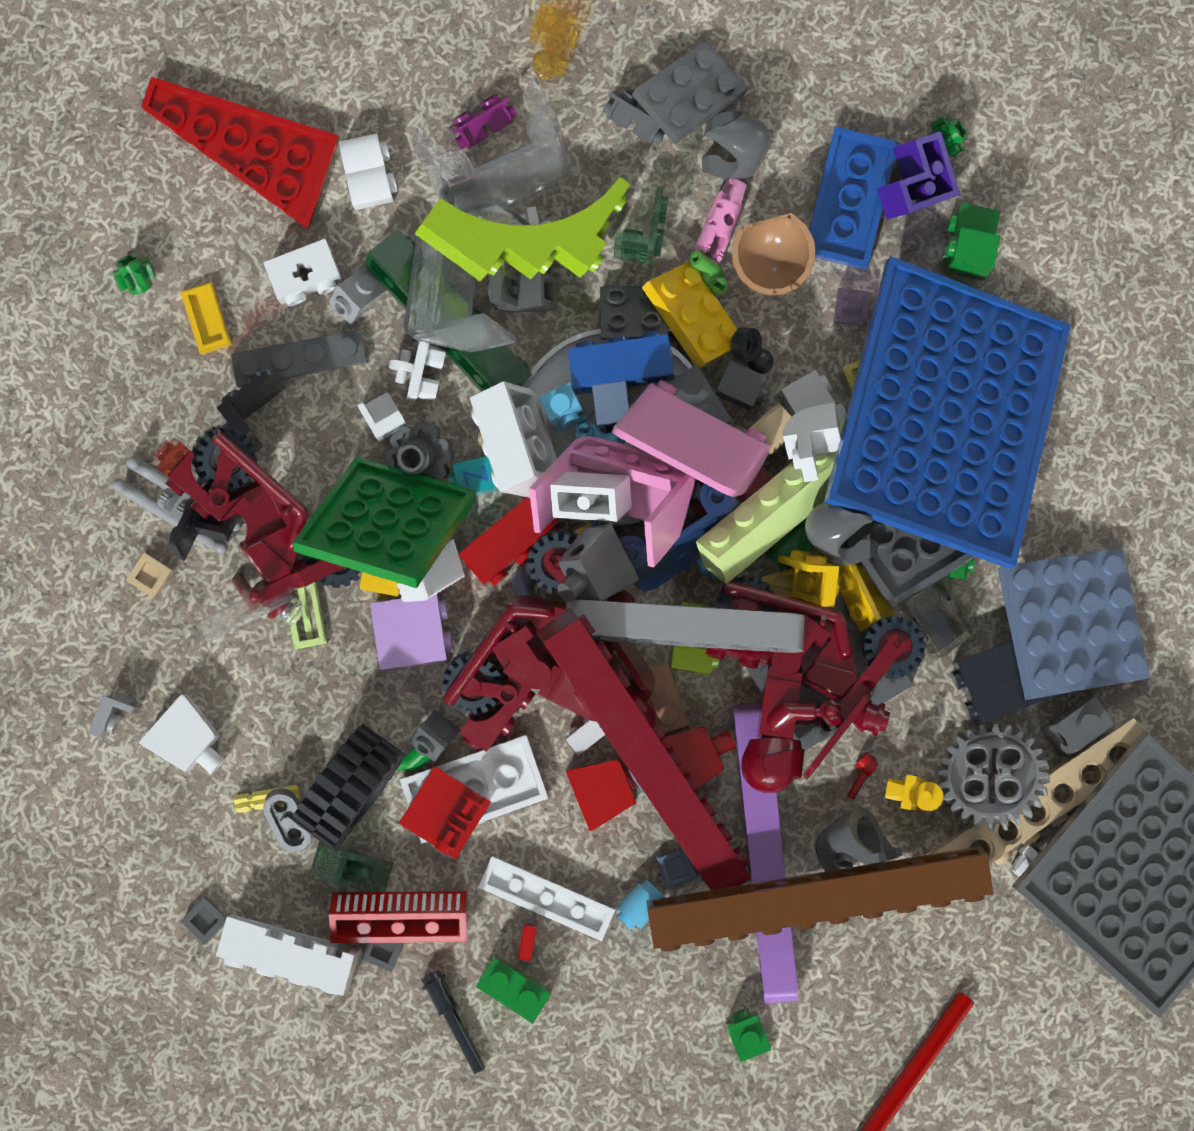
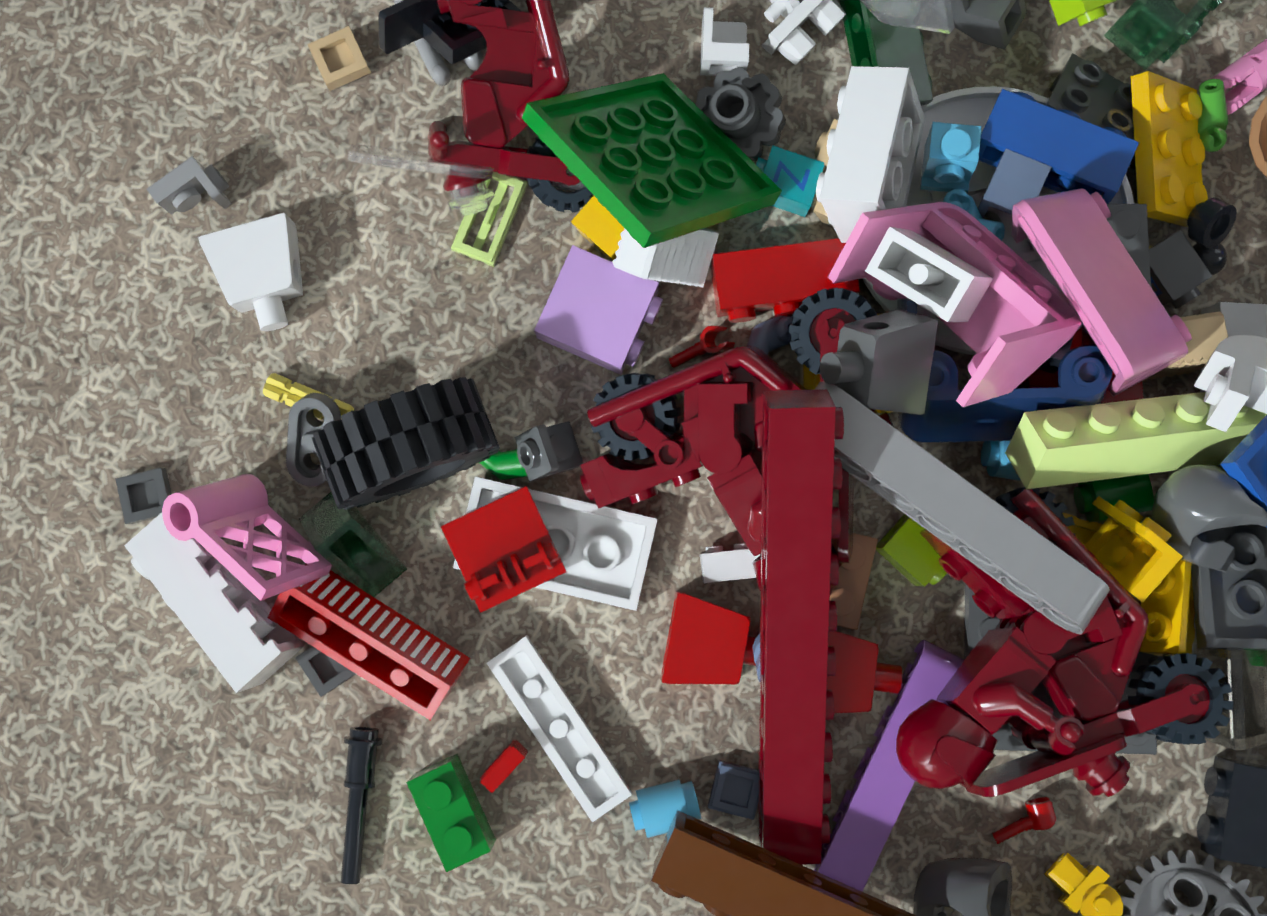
camera: 30 degrees right, 0 degrees up
(268, 892) = (232, 511): none -> bright pink piece
(488, 609) = (705, 345): none -> red hand

